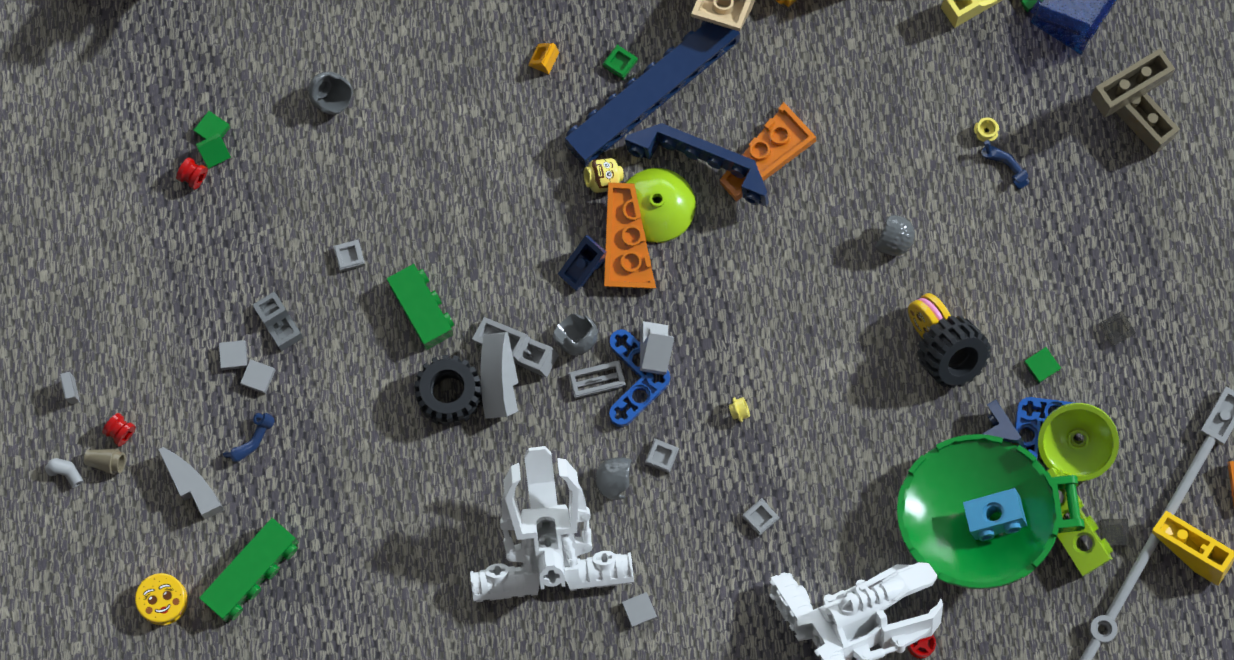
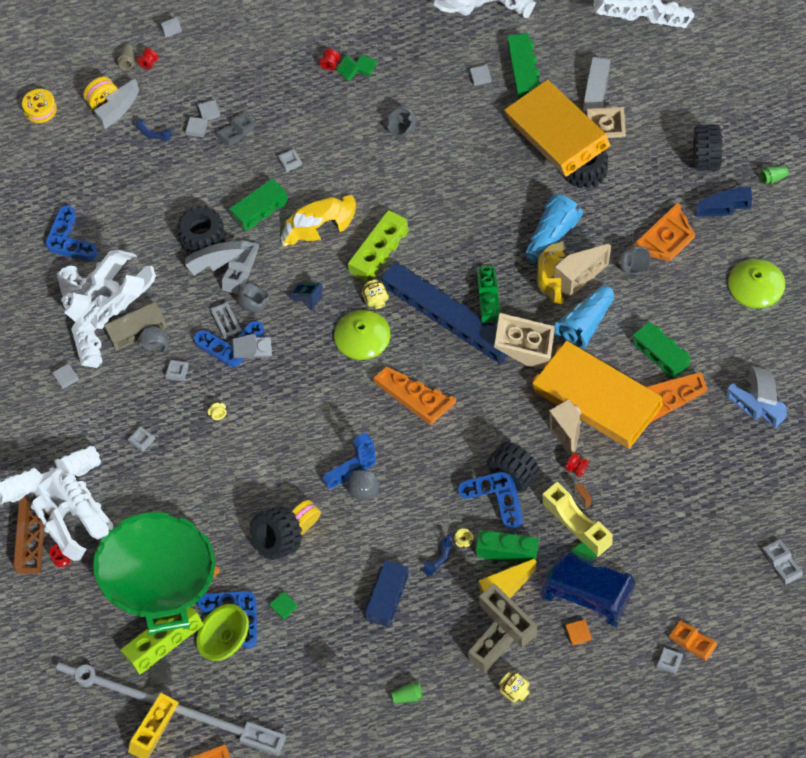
camera: 85 degrees right, 15 degrees down
(64, 467) = (119, 38): light grey arm -> none
(170, 502) = (97, 91): none -> yellow head
(250, 570) = (63, 147): green brick -> none
(406, 591) = (63, 240): none -> blue beam
(463, 232) = (305, 220): none -> yellow animal
(544, 57) = (458, 245): light orange slope -> none
(552, 188) = (379, 237): none -> lime brick
(597, 521) = (128, 328): none -> dark tan brick
(620, 62) = (466, 291): green tile -> none
(626, 246) = (327, 315): orange wing -> none
(639, 33) = (488, 293): none -> green slope
(644, 143) = (385, 382): dark blue slope -> none
(856, 225) = (364, 459): none -> blue beam
(910, 45) = (515, 461): none -> black tyre
(938, 67) = (501, 491): none -> blue beam
(981, 509) = (153, 576): dark azure brick -> none
(1002, 425) = (227, 581): dark blue slope -> none
(1014, 77) = (506, 547): none -> green brick
(1051, 234) = (386, 593): none -> dark blue brick
(1063, 90) = (511, 579): none -> yellow slope
(1137, 20) = (578, 632): none -> orange tile
(1189, 230) = (409, 693): none -> bright green cone
(1201, 106) = (514, 687): none -> light yellow head

